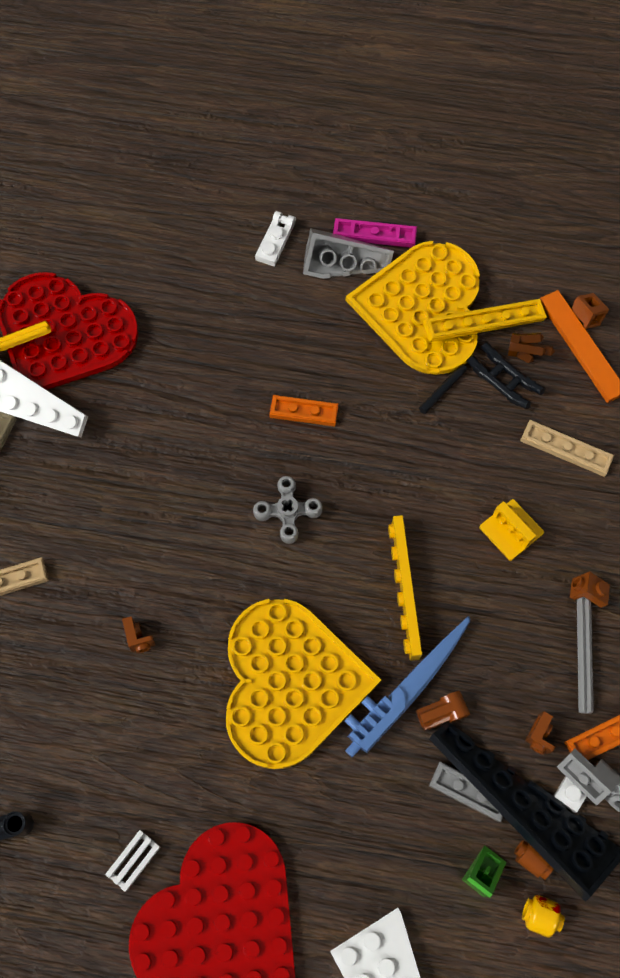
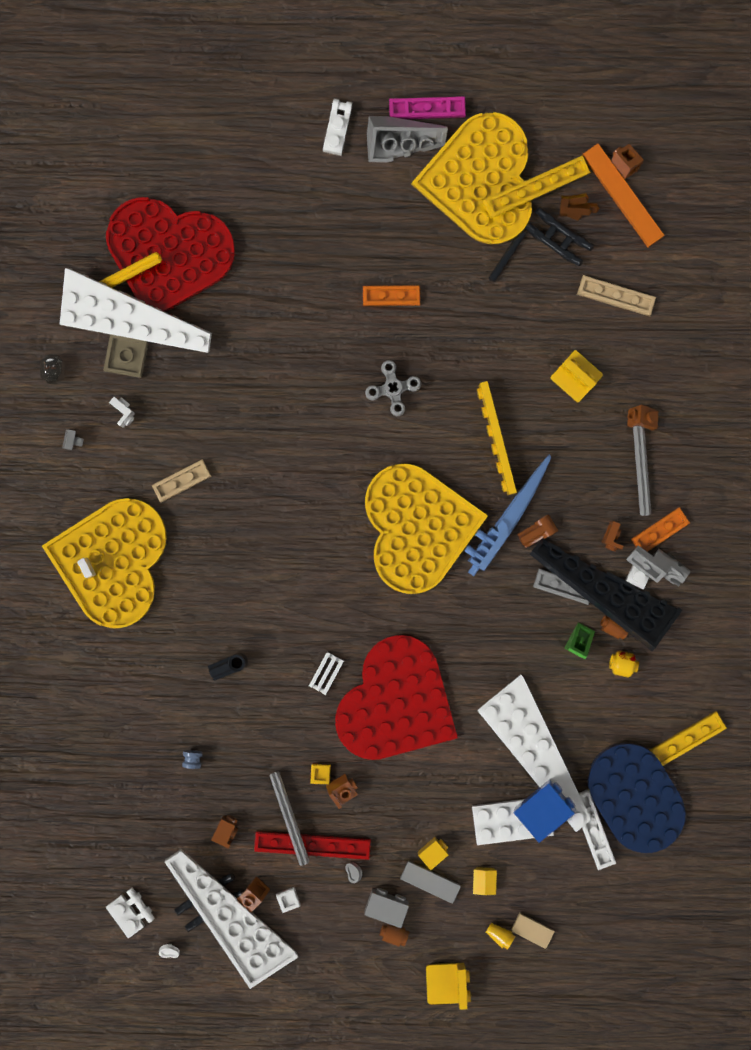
camera: 10 degrees left, 20 degrees up
(133, 632) = (290, 510): dark orange bracket -> none

